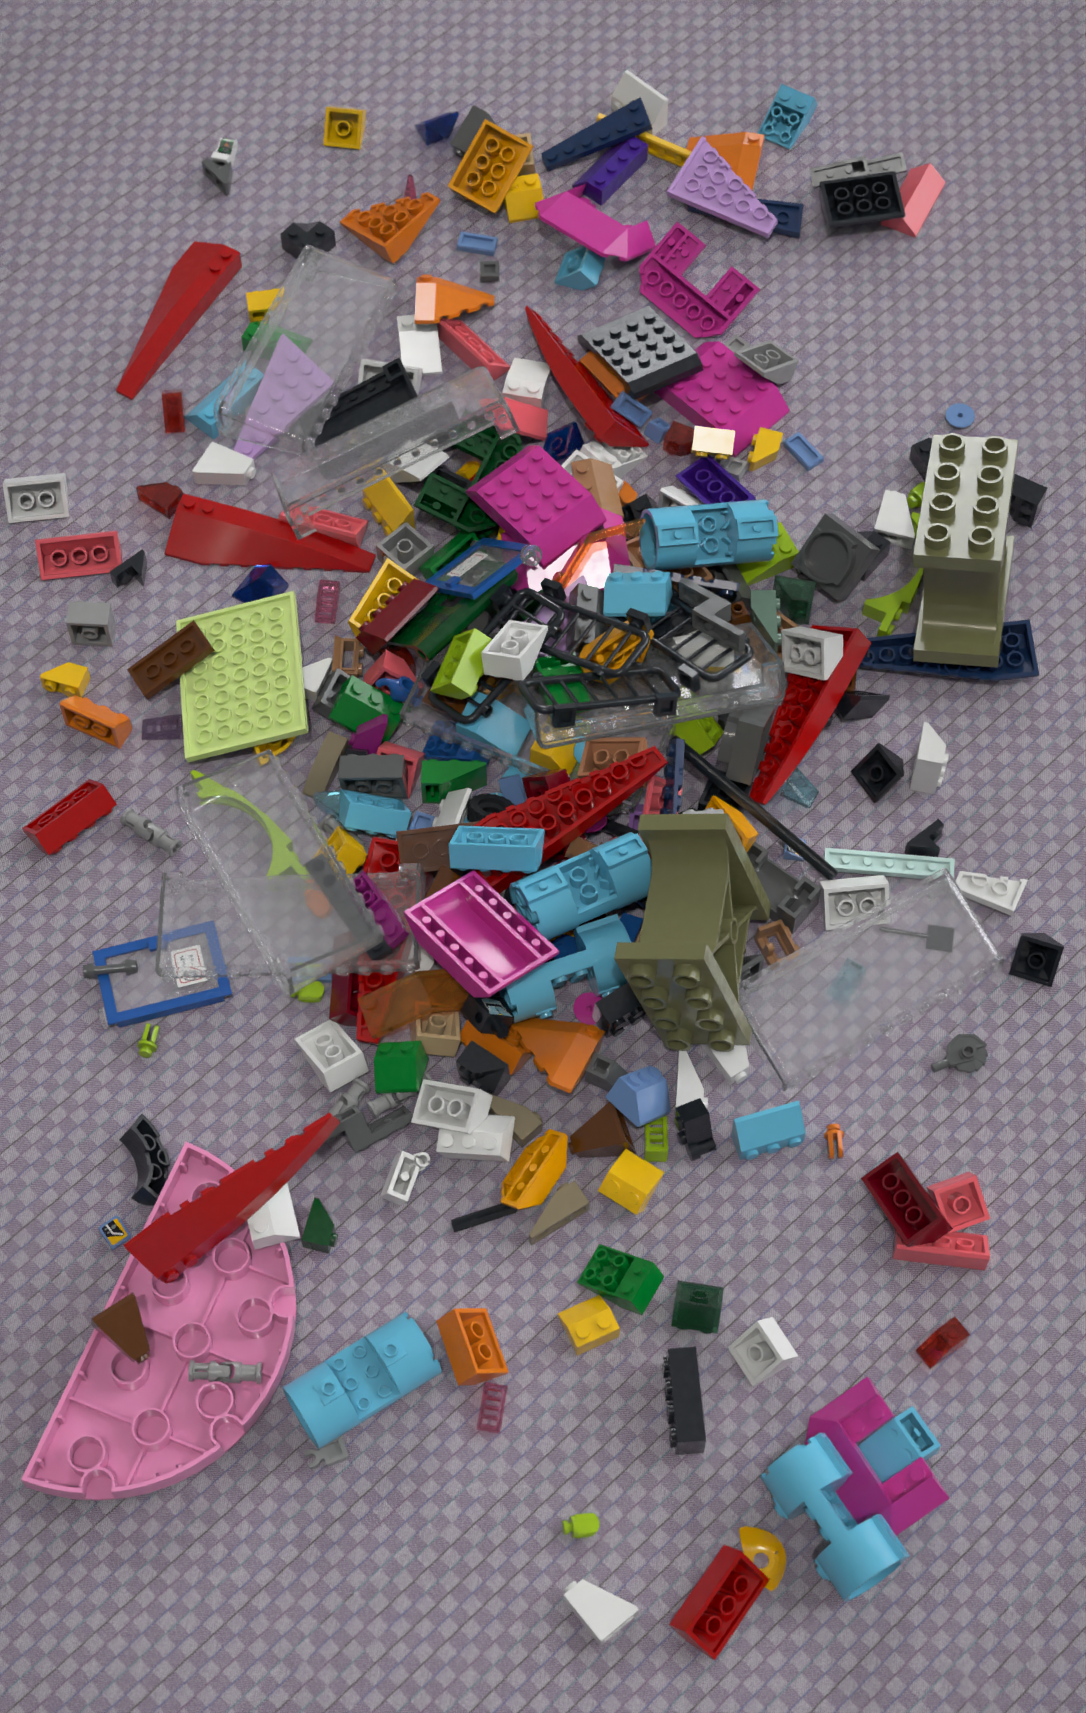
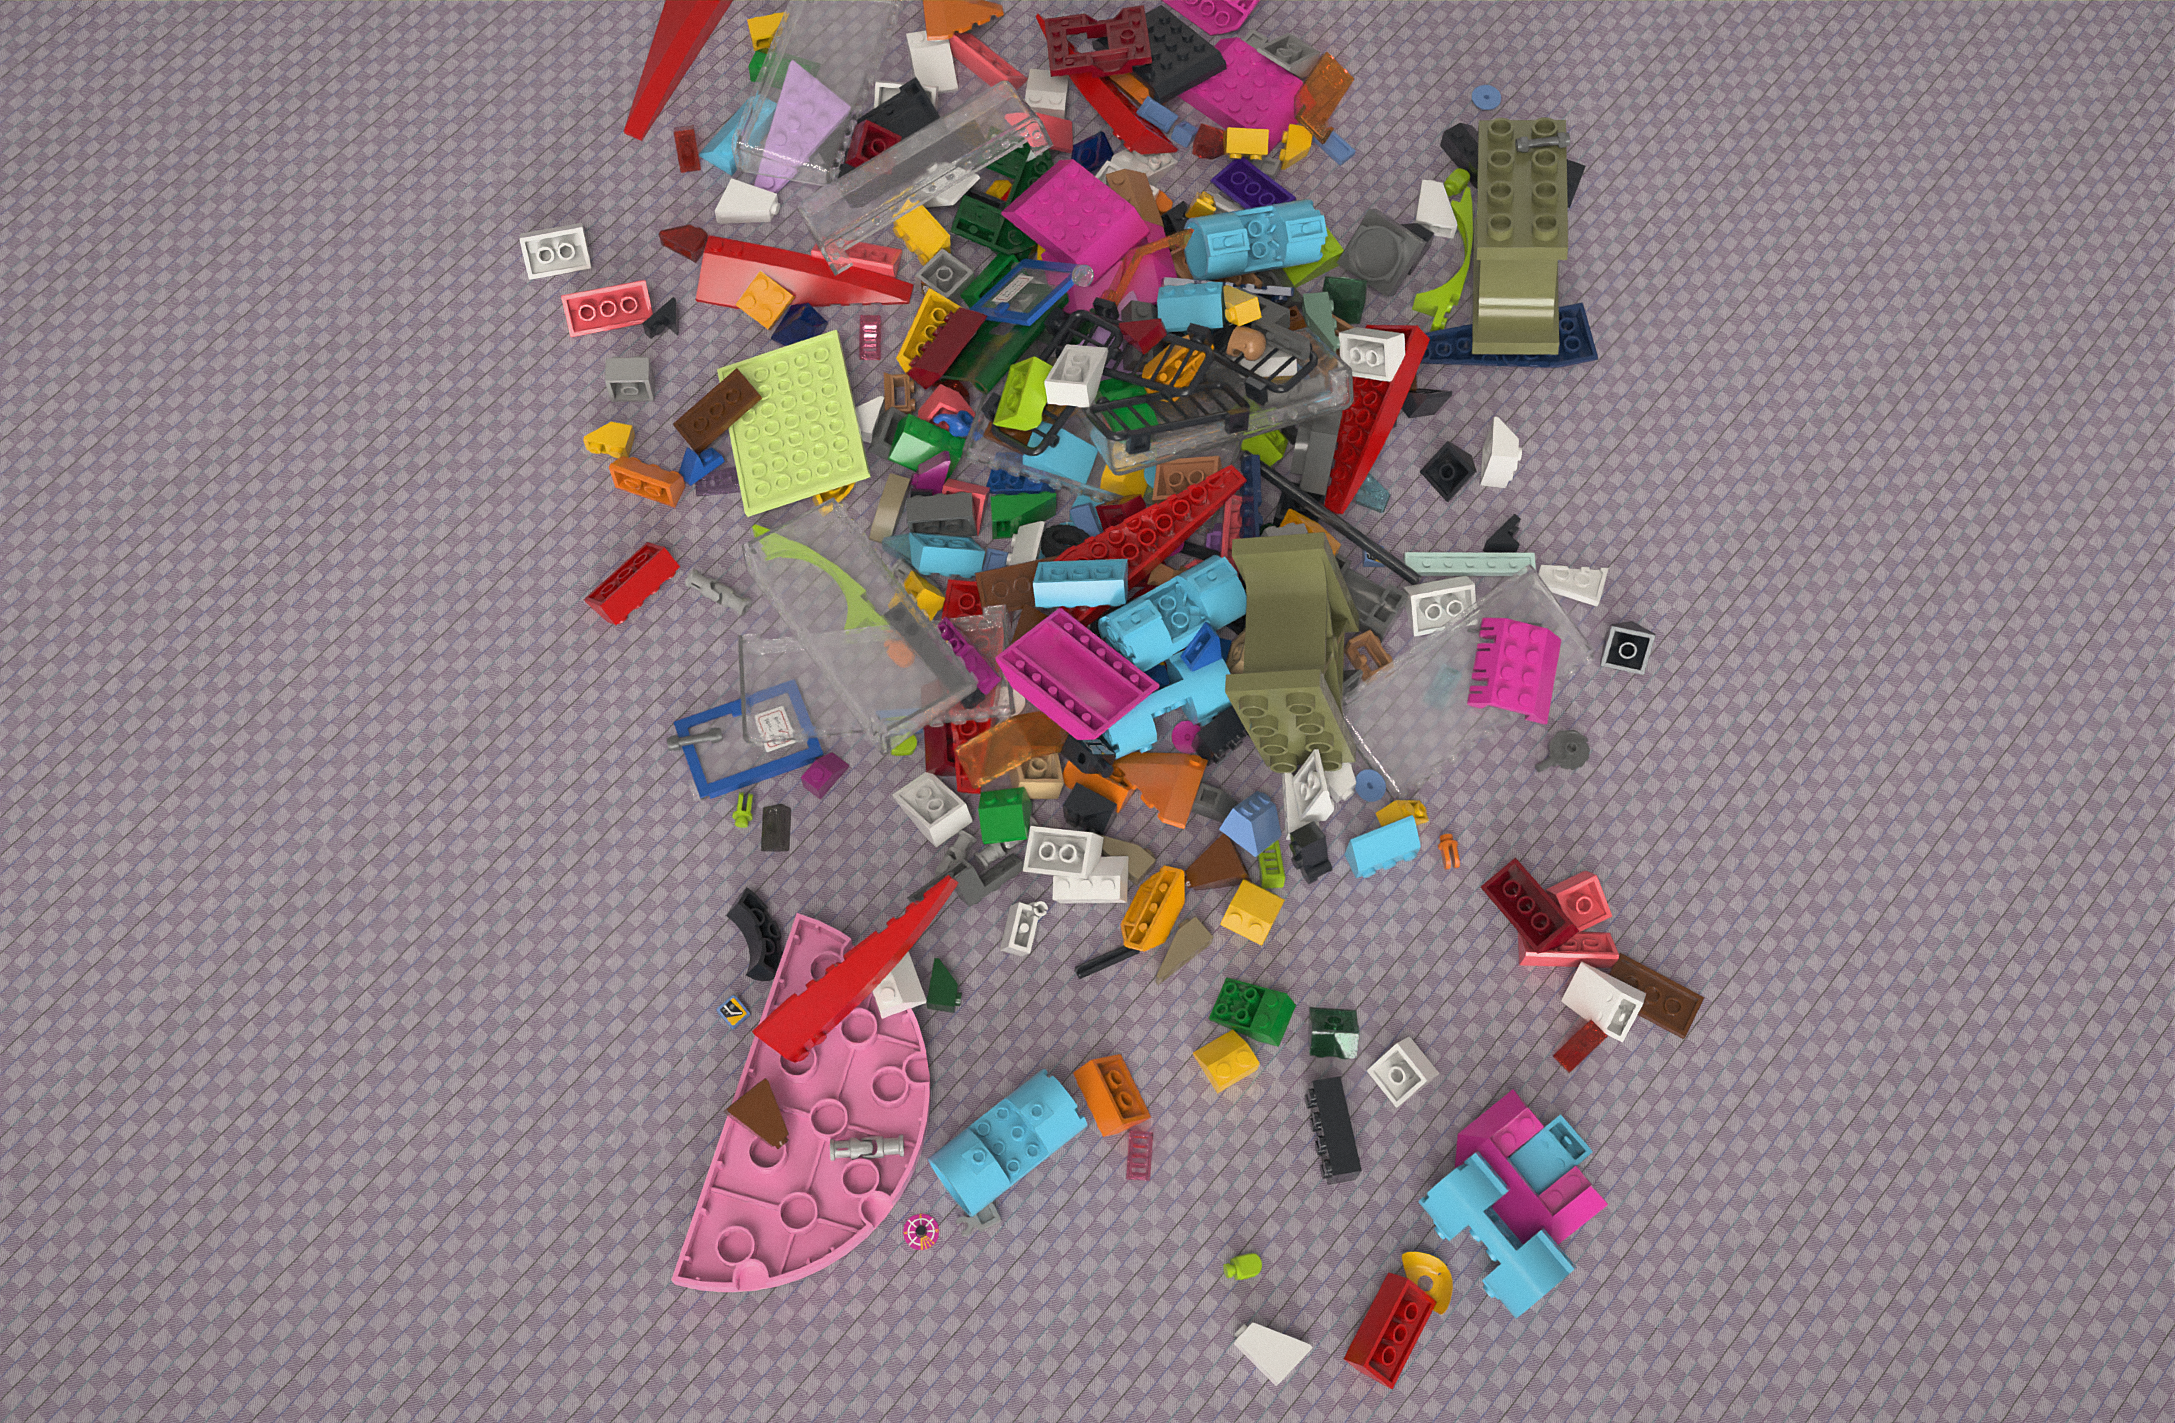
camera: 10 degrees left, 5 degrees up
(144, 712) = (696, 467): none -> blue slope
(178, 1061) = (776, 828): none -> clear smoke slope
(230, 559) = (765, 300): none -> light orange plate
(230, 1013) = (823, 774): none -> magenta slope
(270, 1461) = (921, 1231): none -> dark pink piece
(347, 415) = (868, 142): none -> dark red slope
(584, 614) = (1143, 333): none -> dark red slope
(606, 338) = (1126, 41): none -> dark red piece
(608, 921) = (1203, 649): none -> blue slope
(660, 498) = (1201, 205): none -> yellow slope
(682, 596) = (1240, 306): none -> yellow slope
(684, 630) = (1248, 341): none -> medium nougat helmet
(703, 1068) = (1312, 790): none -> white slope
(763, 1070) = (1370, 785): none -> medium blue piece
(790, 1094) = (1401, 809): none -> yellow slope
(794, 403) = (1320, 96): none -> clear orange windscreen
(919, 967) = (1516, 667): none -> dark pink slope
(971, 1299) = (1603, 1000): none -> white slope
(1009, 458) = (1561, 140): none -> dark grey bar
(1021, 1300) = (1665, 1001): none -> reddish brown plate

